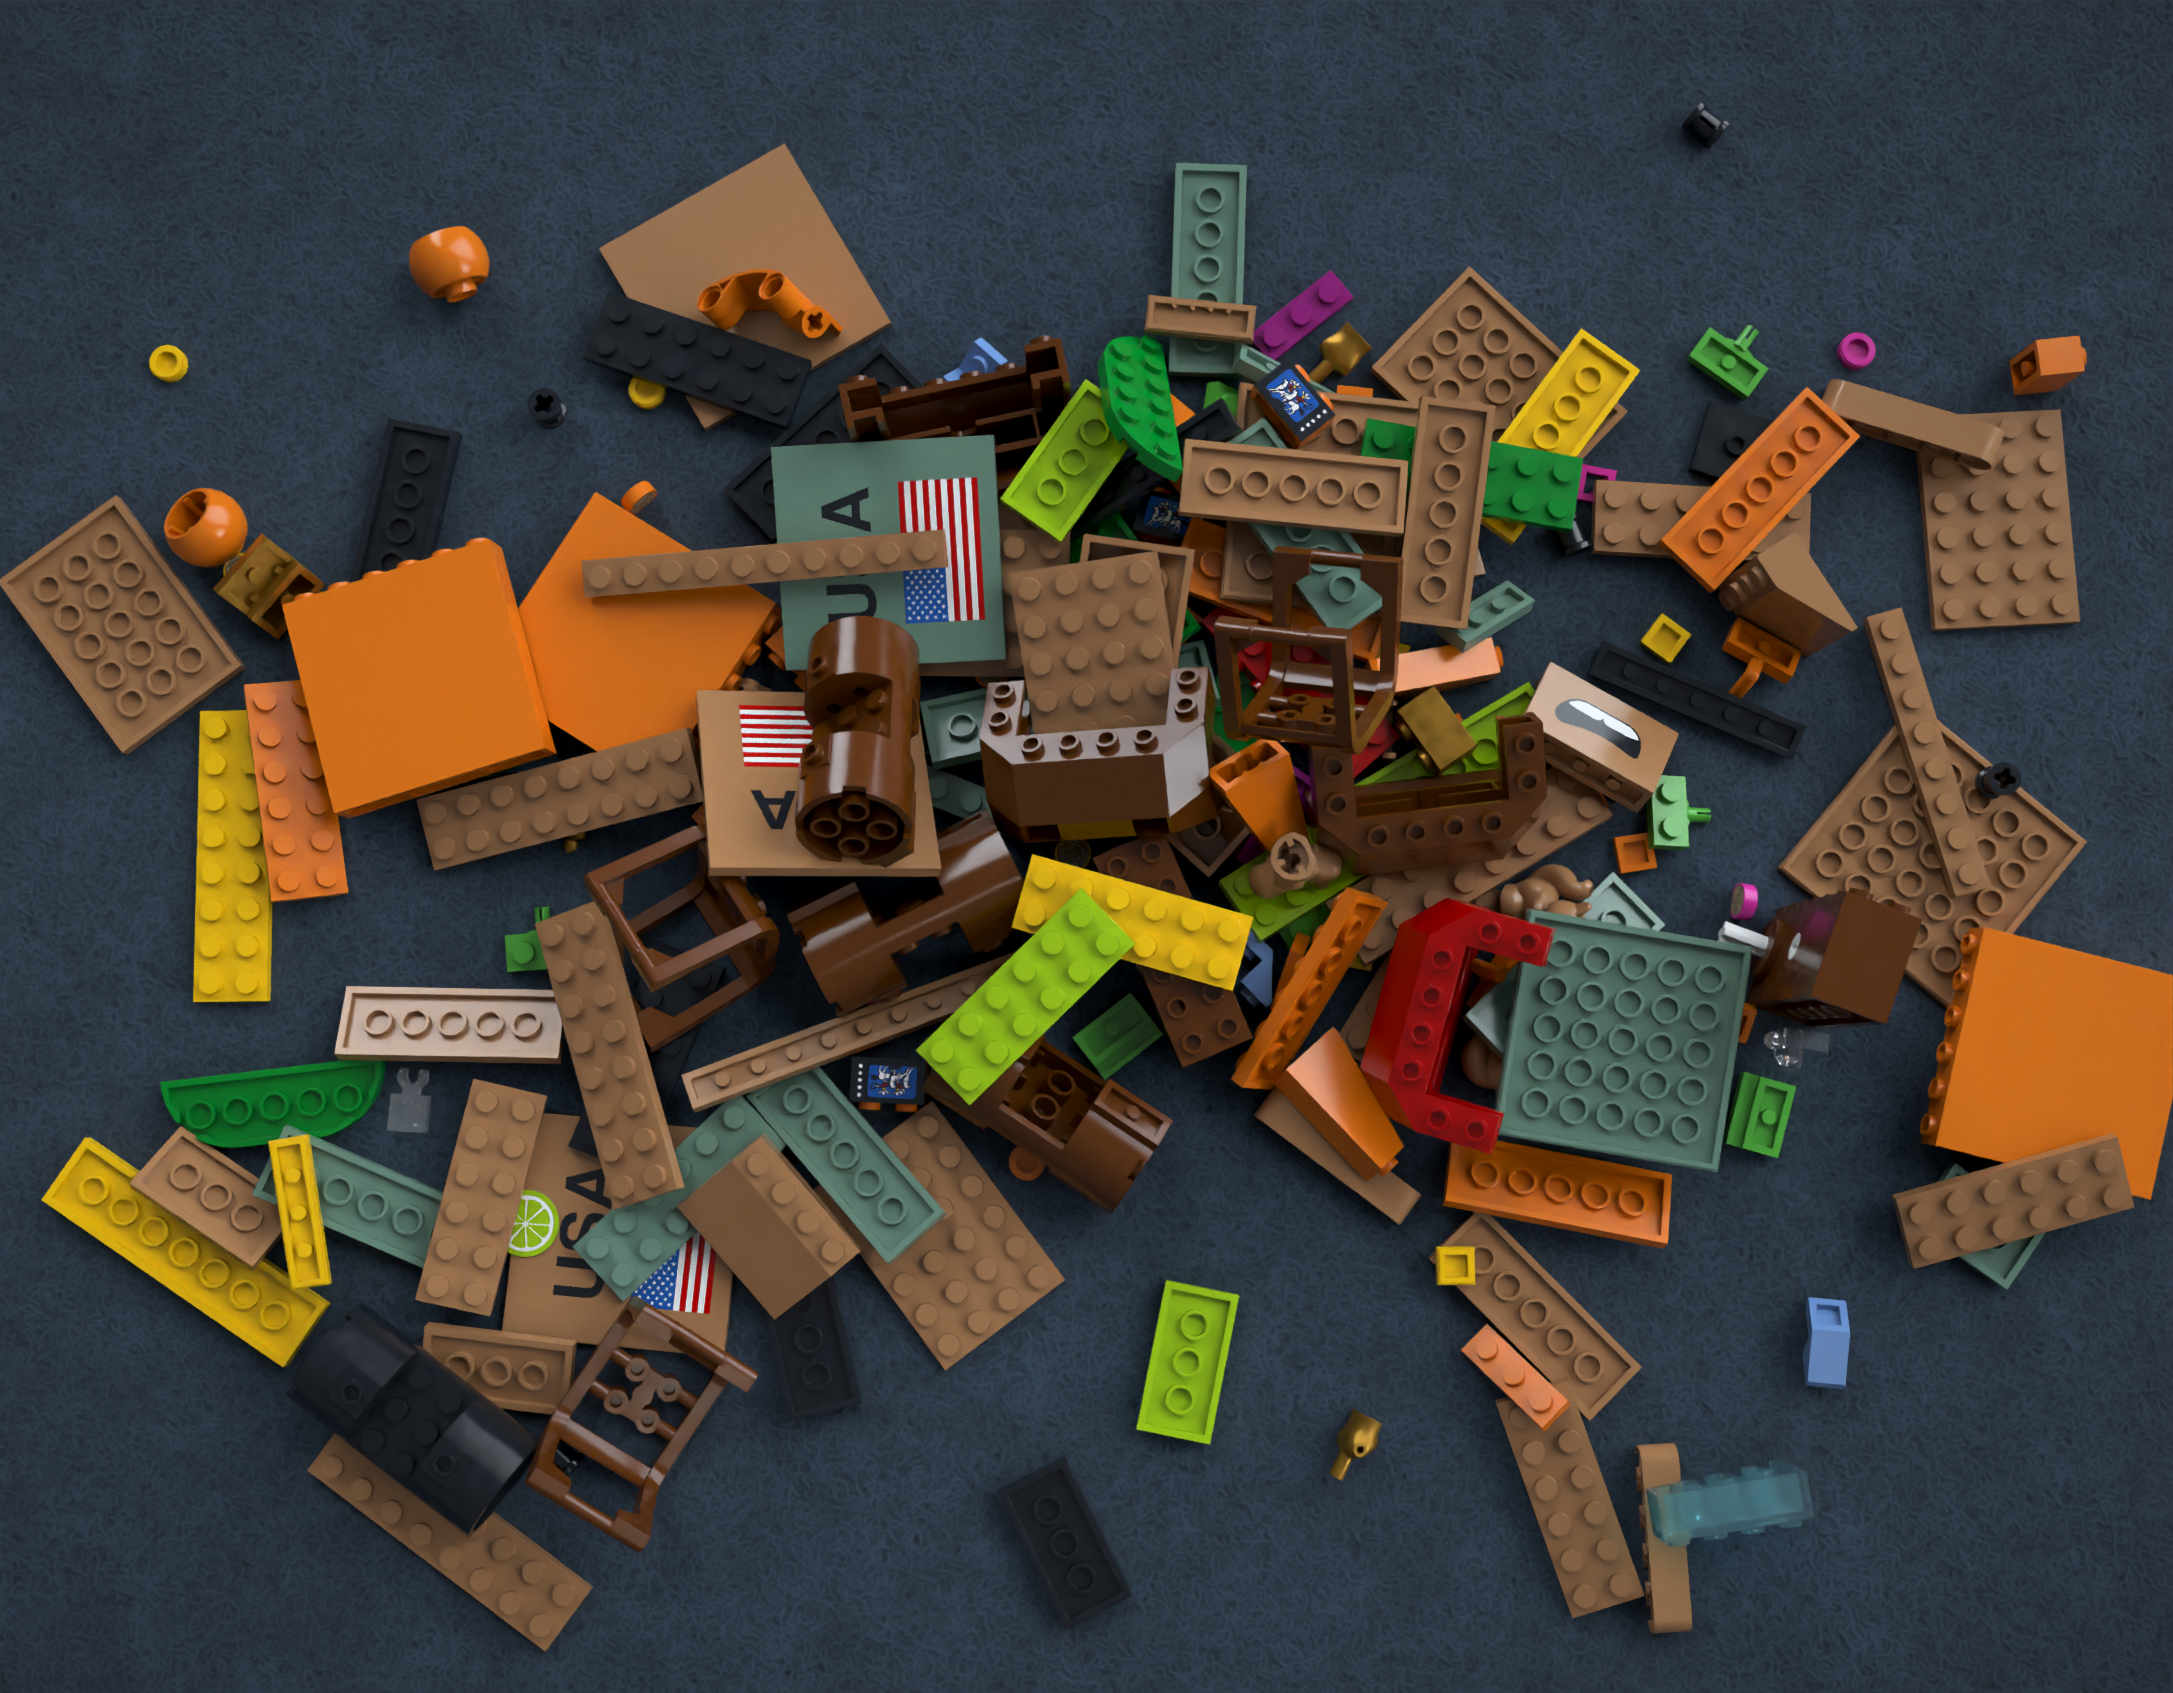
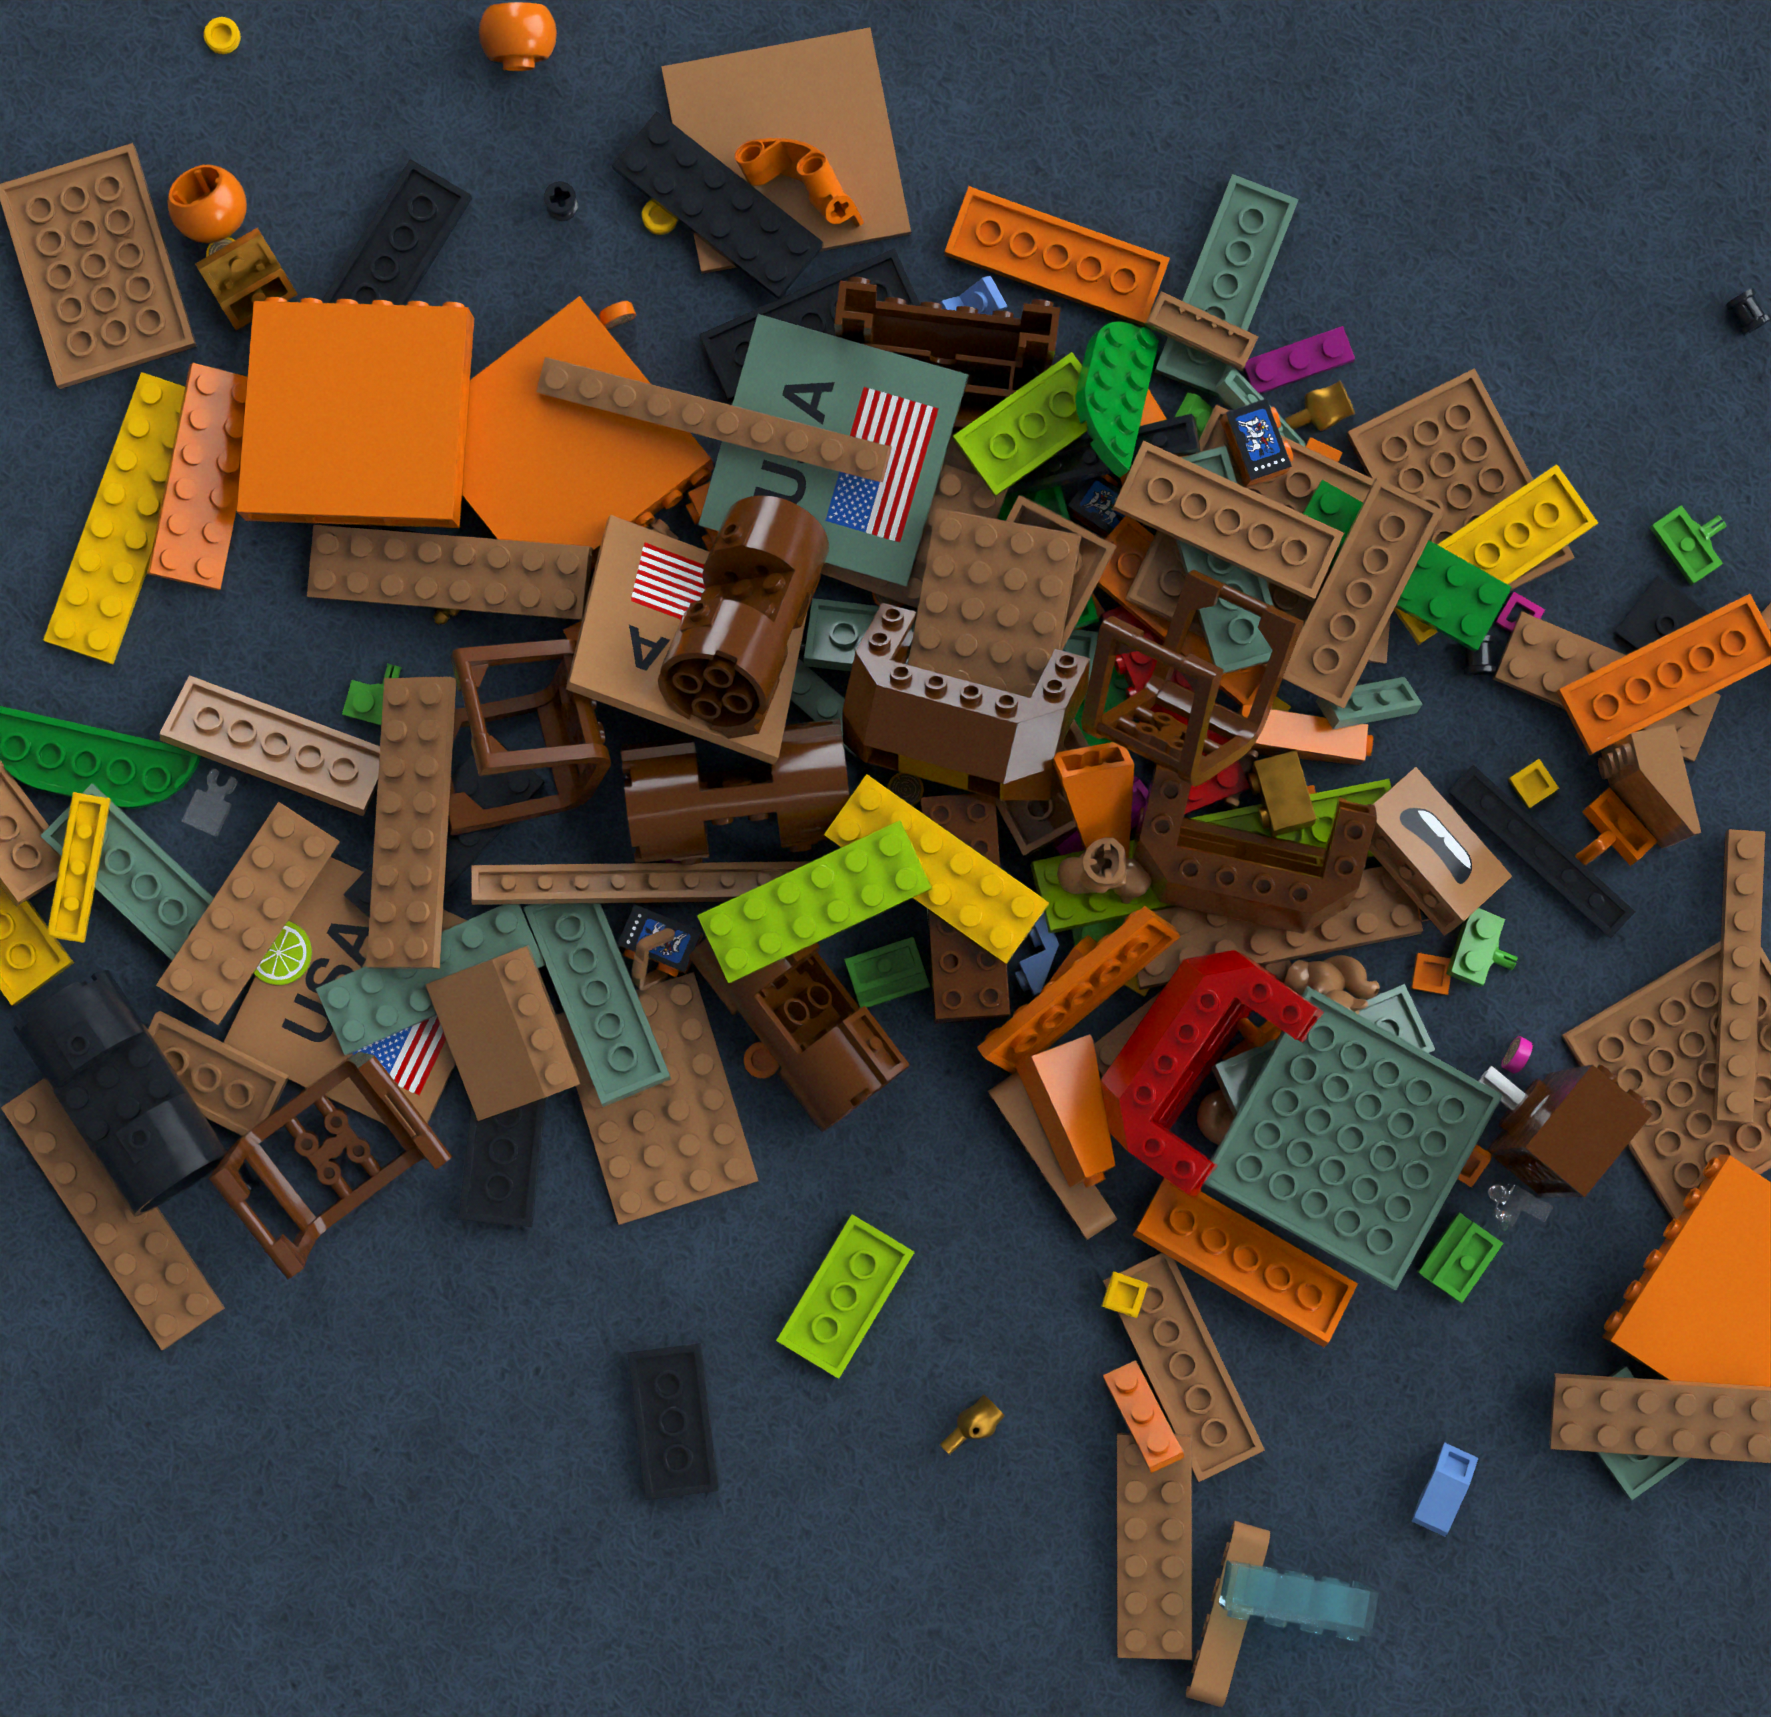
camera: 15 degrees right, 0 degrees up
(881, 1123) = (641, 958): none -> medium nougat piece
(1037, 298) = (1056, 256): none -> orange plate

